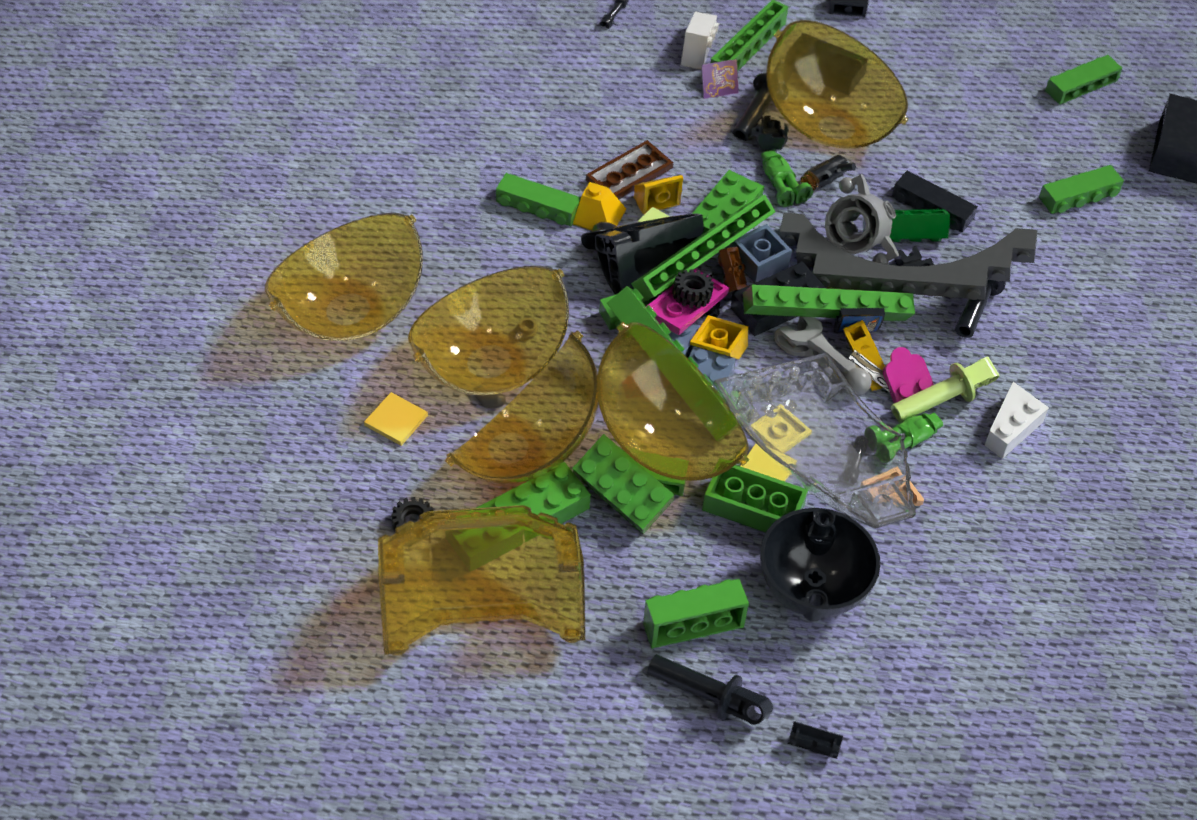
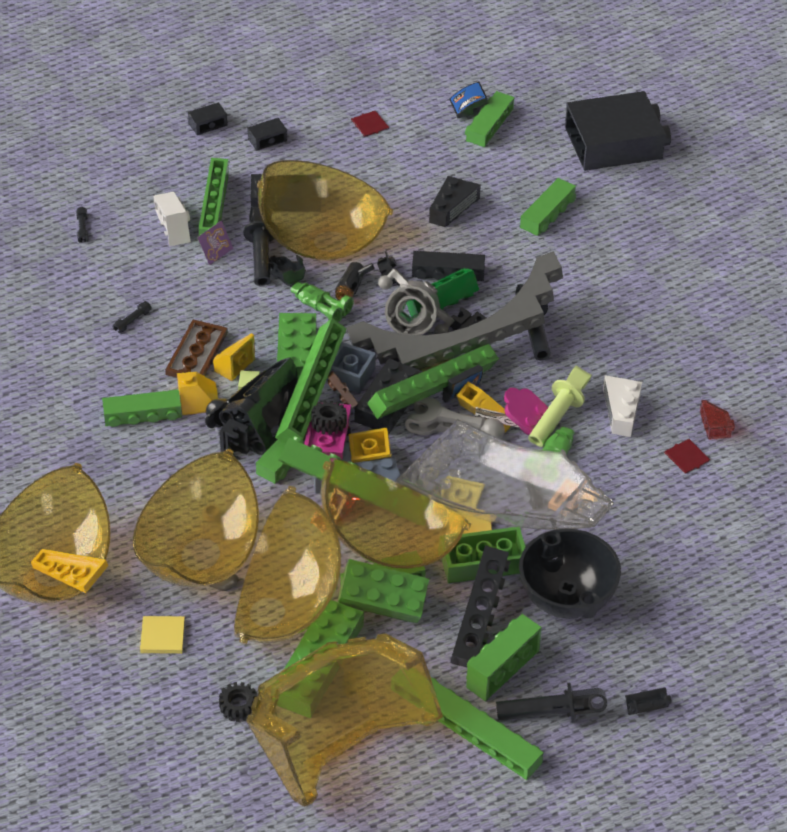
camera: 30 degrees left, 5 degrees down
(353, 313) = (70, 569): none -> yellow wing
(579, 116) = (142, 308): none -> black bar
(595, 267) = (234, 437): none -> black hinge
(619, 666) = (487, 733): none -> bright green brick
(747, 506) = (491, 559): none -> black brick
(873, 175) = (386, 265): none -> black hinge
(959, 34) = (370, 123): none -> dark red piece
(985, 140) = (453, 199): none -> black wedge
(1048, 508) = (687, 456): none -> dark red piece
(1073, 50) = (467, 99): none -> slope
(1105, 487) = (716, 421): none -> clear red slope

